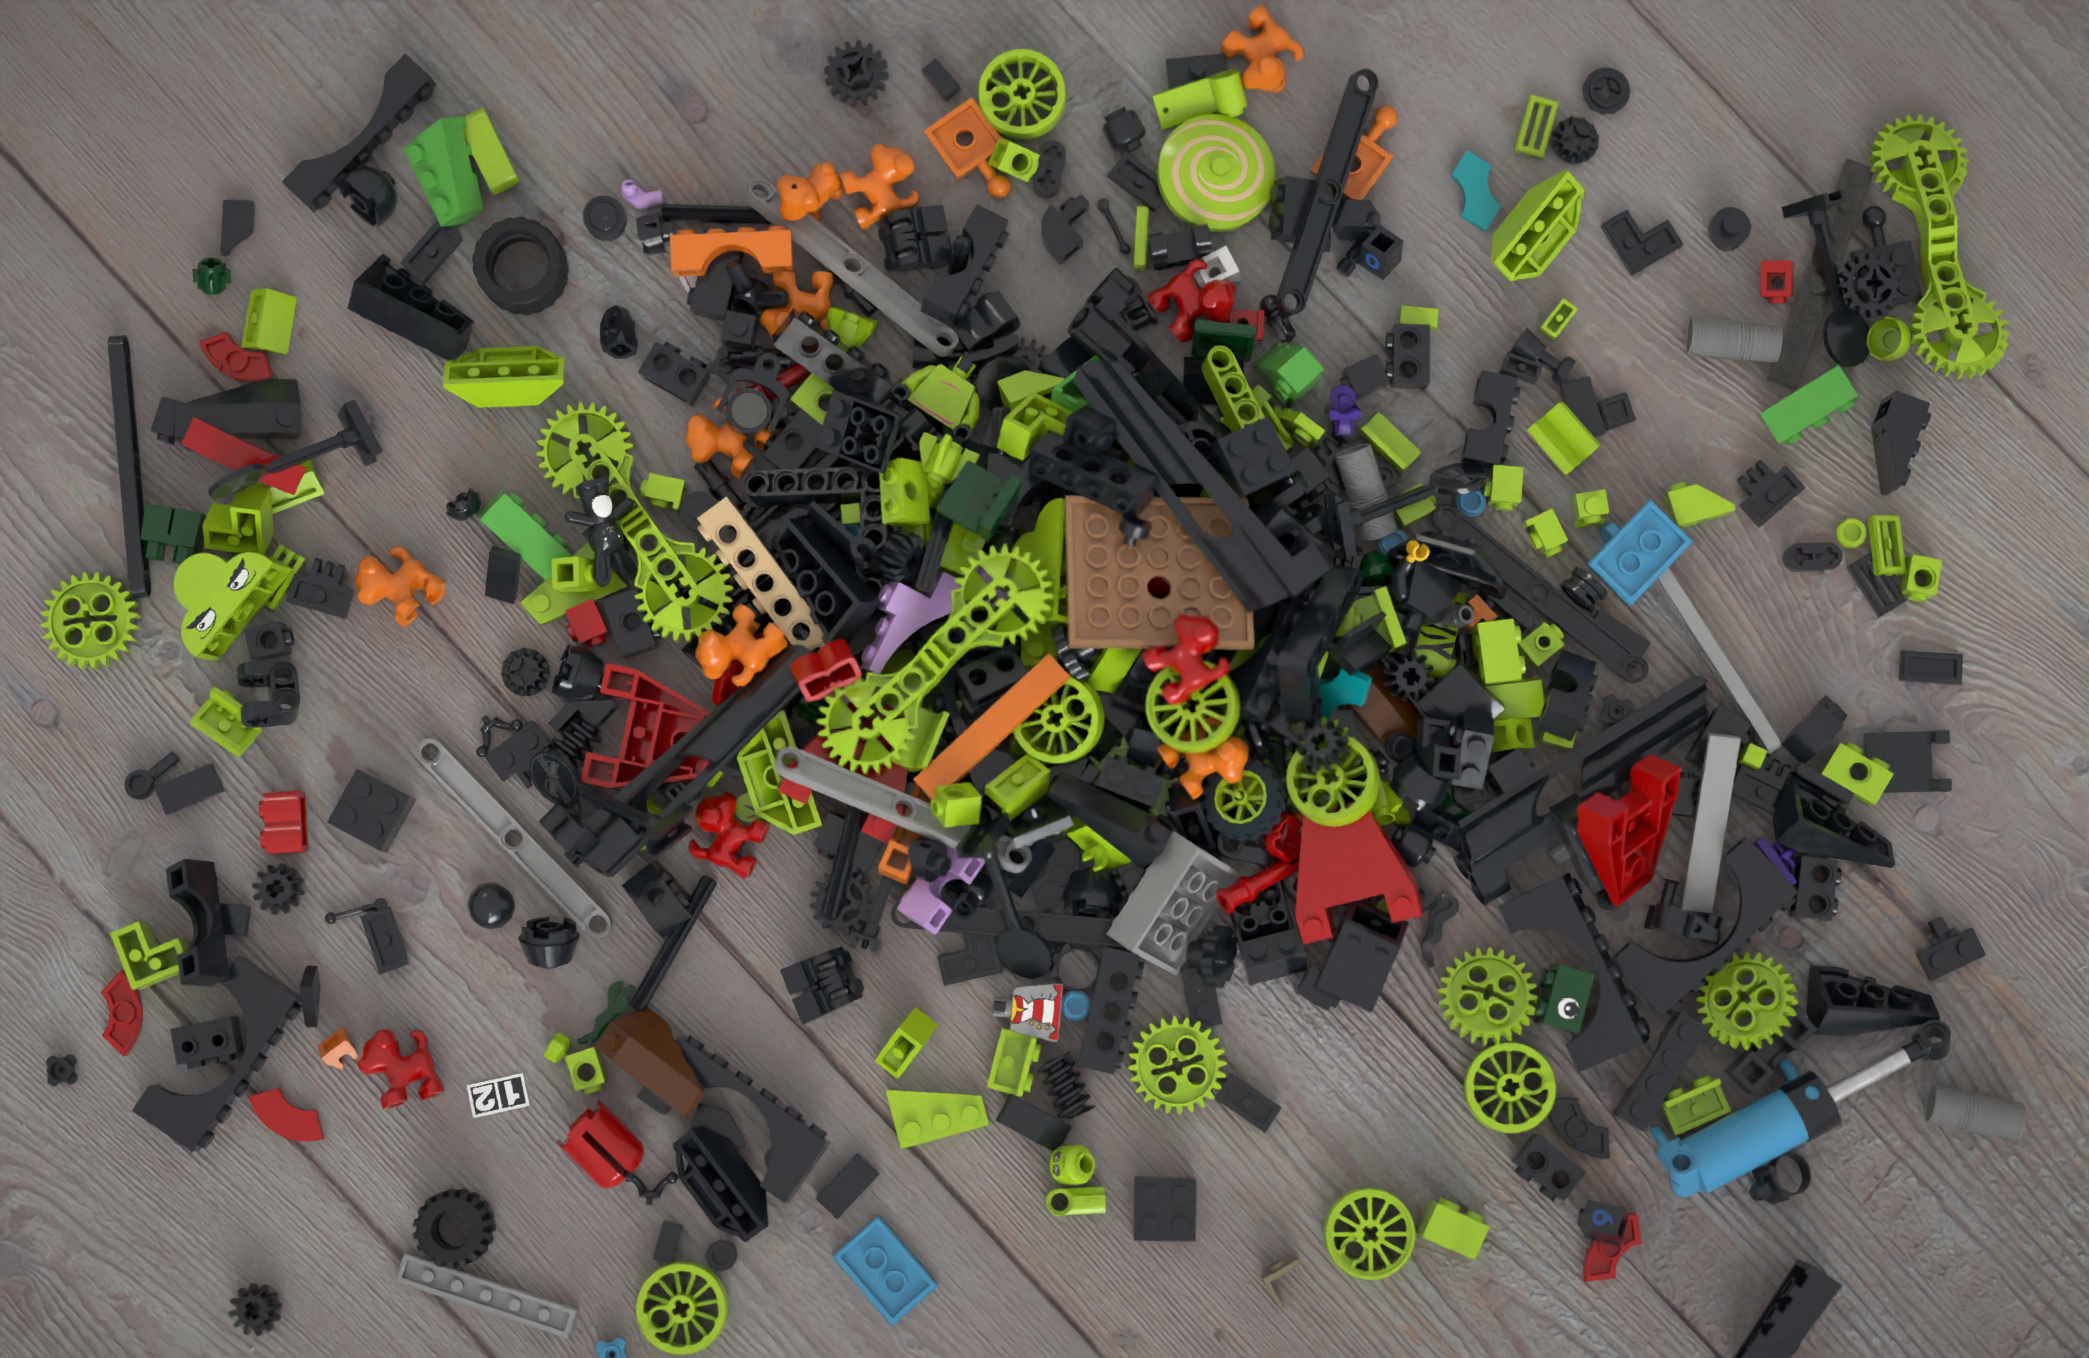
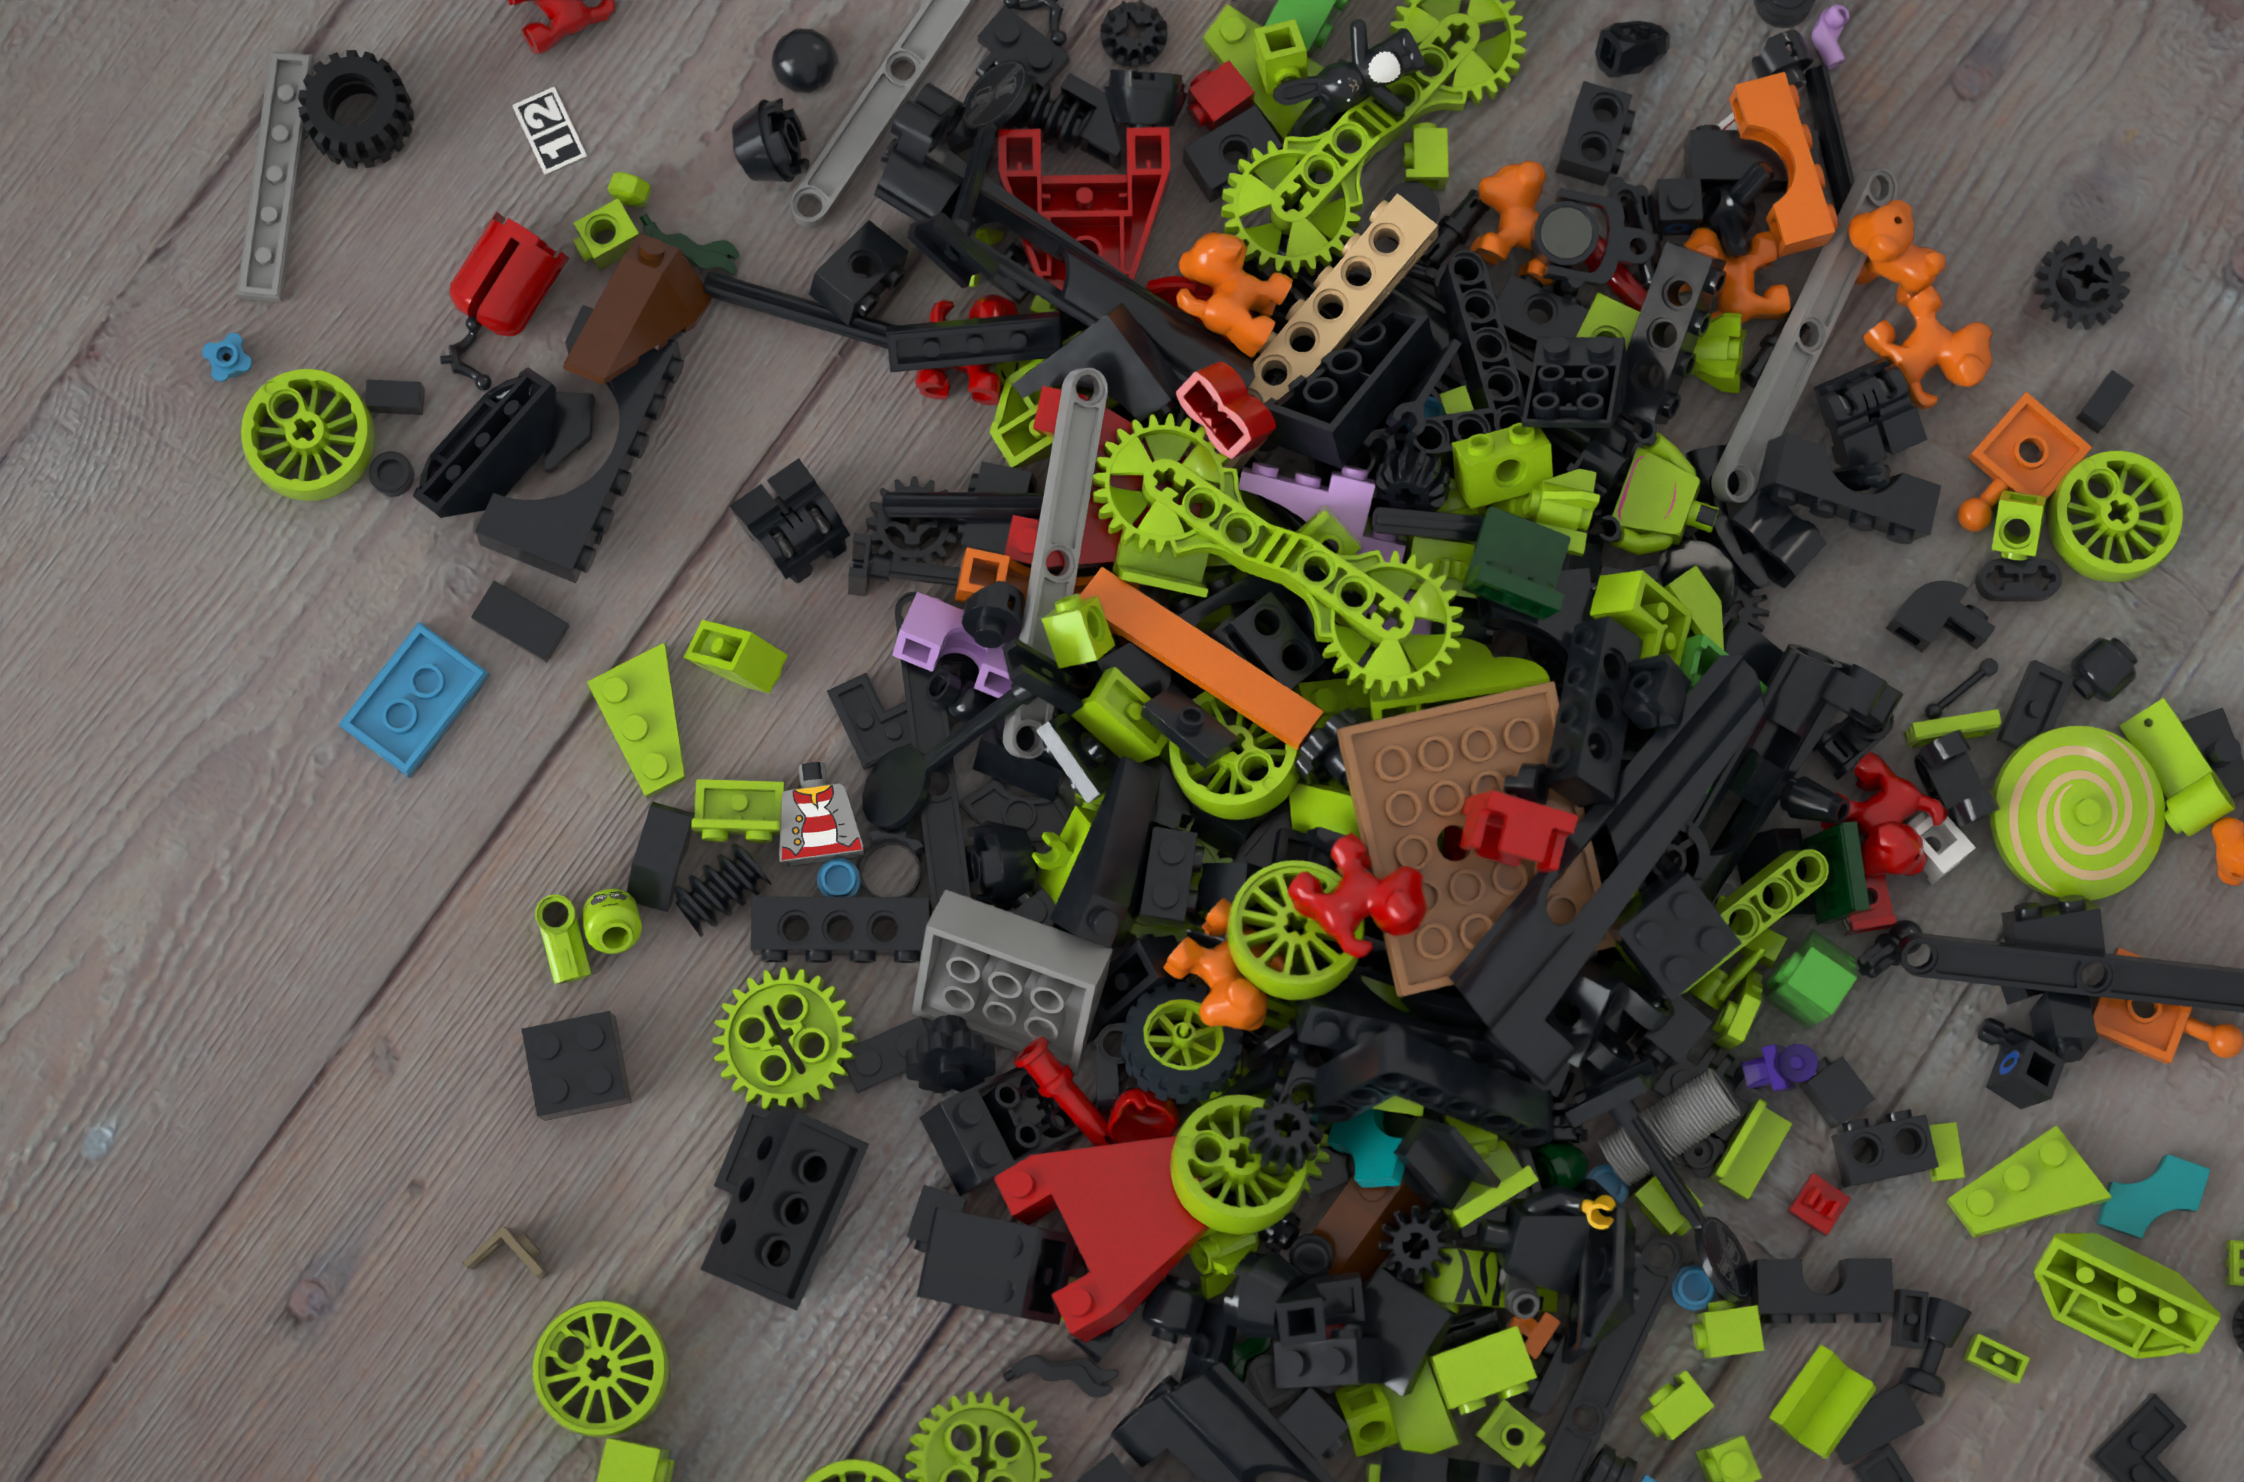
camera: 75 degrees right, 5 degrees down
(729, 830) = (973, 341): none -> black tile
(763, 737) = (1126, 357): none -> black arch
(921, 621) = (1326, 526): none -> lime brick
(1037, 745) = (1189, 726): none -> black plate
(1166, 546) = (1512, 829): none -> red panel
(1173, 345) = (1813, 802): none -> black cone
(1291, 1088) = (784, 1206): none -> black brick
(1434, 407) = (1818, 1204): none -> red tile
(1452, 269) = (2029, 1185): none -> lime wing

